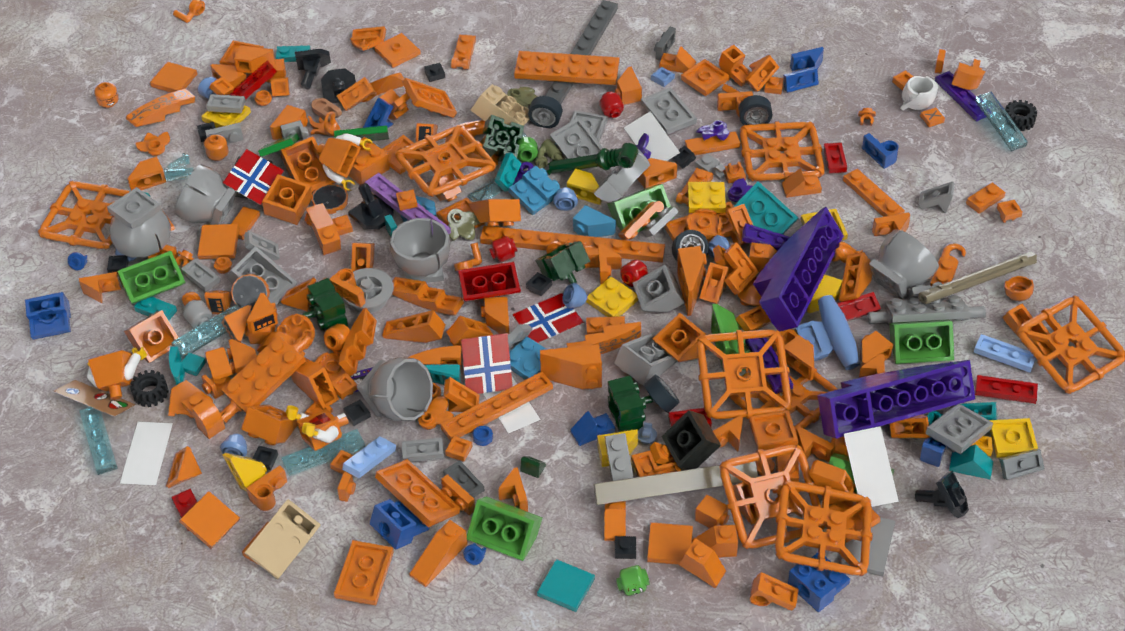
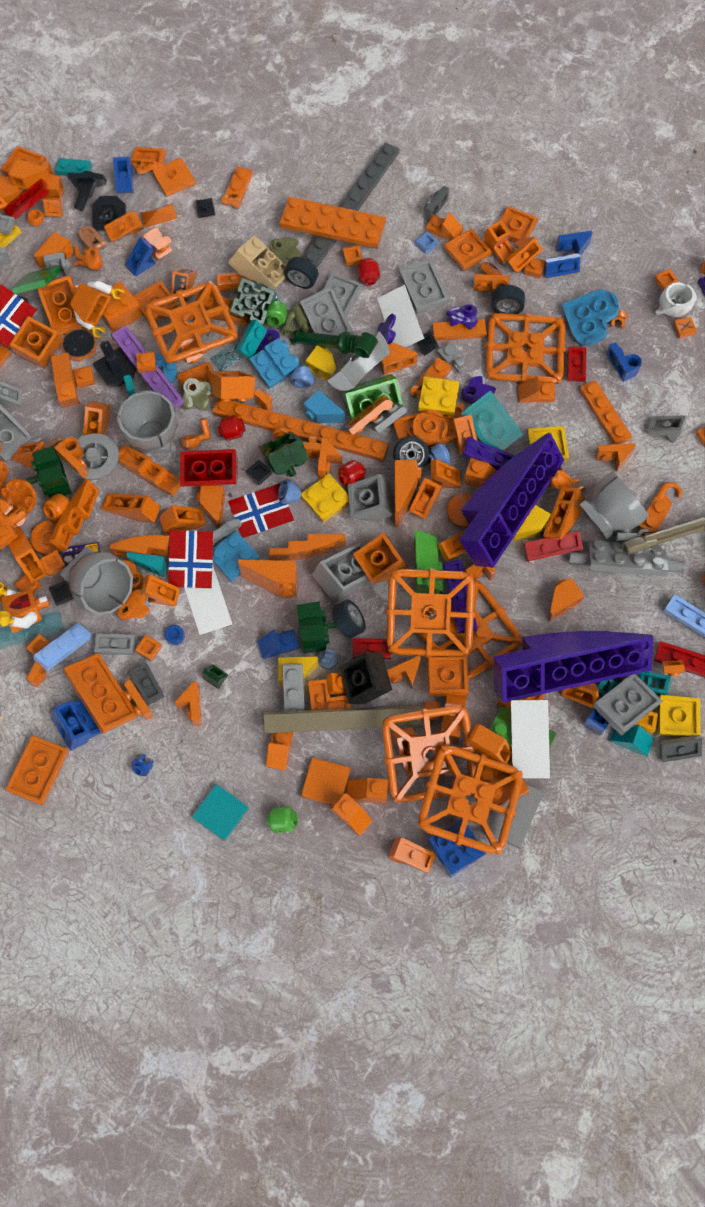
camera: 10 degrees right, 20 degrees up
(347, 51) = (123, 174): none -> blue slope
(372, 133) = (118, 276): green tile -> none
(429, 98) = (191, 242): orange plate -> none
(439, 553) = (108, 761): orange slope -> none
(497, 406) = (192, 605): orange plate -> none
(503, 527) = (173, 742): bright green slope -> none
(530, 222) = (263, 400): none -> orange plate
(592, 94) = (352, 255): none -> orange plate
(596, 324) = (311, 526): orange plate -> none
(625, 547) = (283, 779): black plate -> none
(629, 87) = (389, 252): orange slope -> none
(711, 512) = (371, 757): orange brick -> none
(734, 172) = (473, 368): orange tile -> none
(742, 267) = (456, 488): orange plate -> none
(753, 50) = (518, 223): none -> orange tile
(800, 356) = (490, 596): orange slope -> none
(814, 444) = (480, 693): orange slope -> none
(831, 334) = (524, 575): medium blue plate -> none
(839, 115) = (590, 315): none -> dark azure plate
(873, 367) = (561, 619): orange slope -> none
(922, 341) = (615, 593): bright green slope -> none
(947, 494) = (601, 775): black piece -> none
(996, 393) = (673, 668): none -> orange plate

